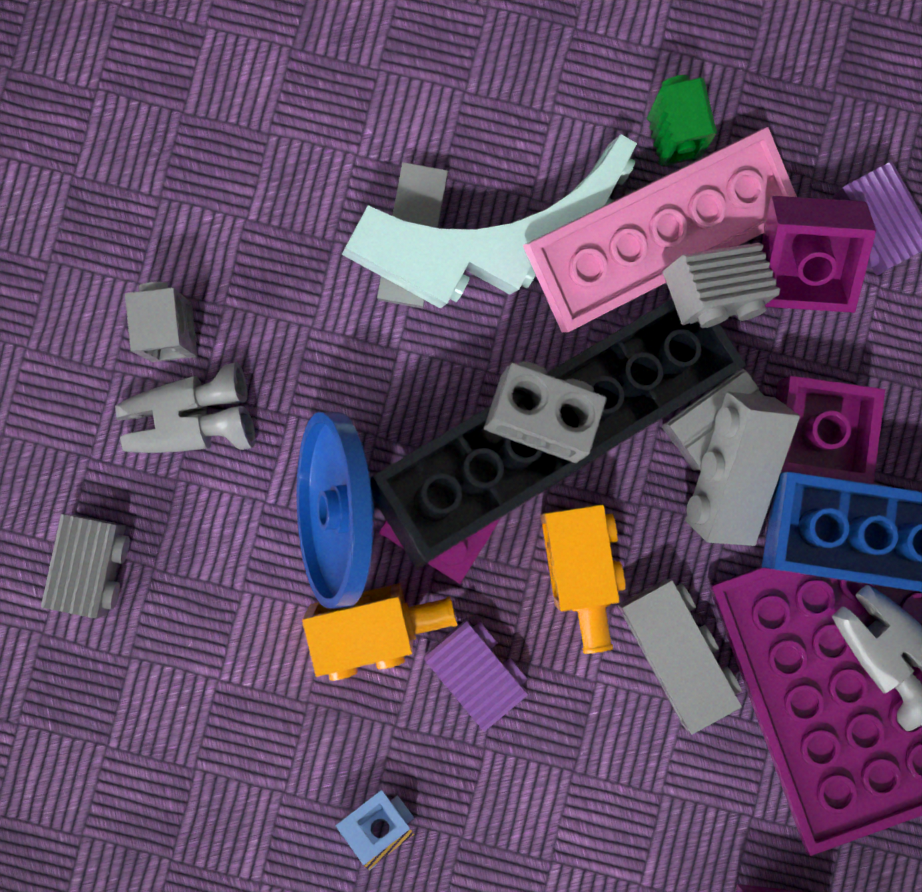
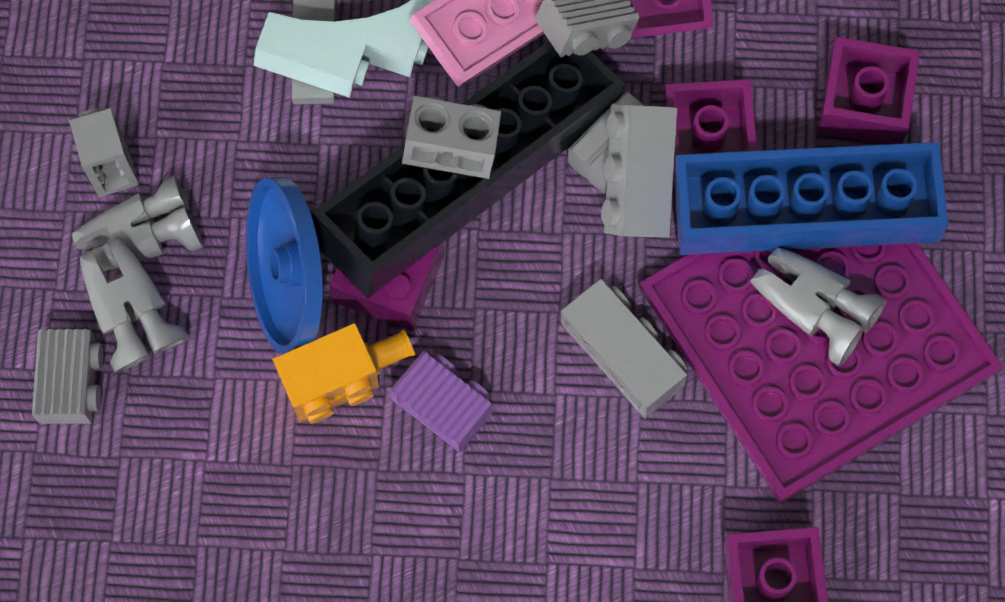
camera: 10 degrees left, 15 degrees down
(160, 496) = (126, 300): none -> light grey piece
(359, 826) = (375, 556): light blue brick -> none
(583, 569) = (517, 280): light orange brick -> none

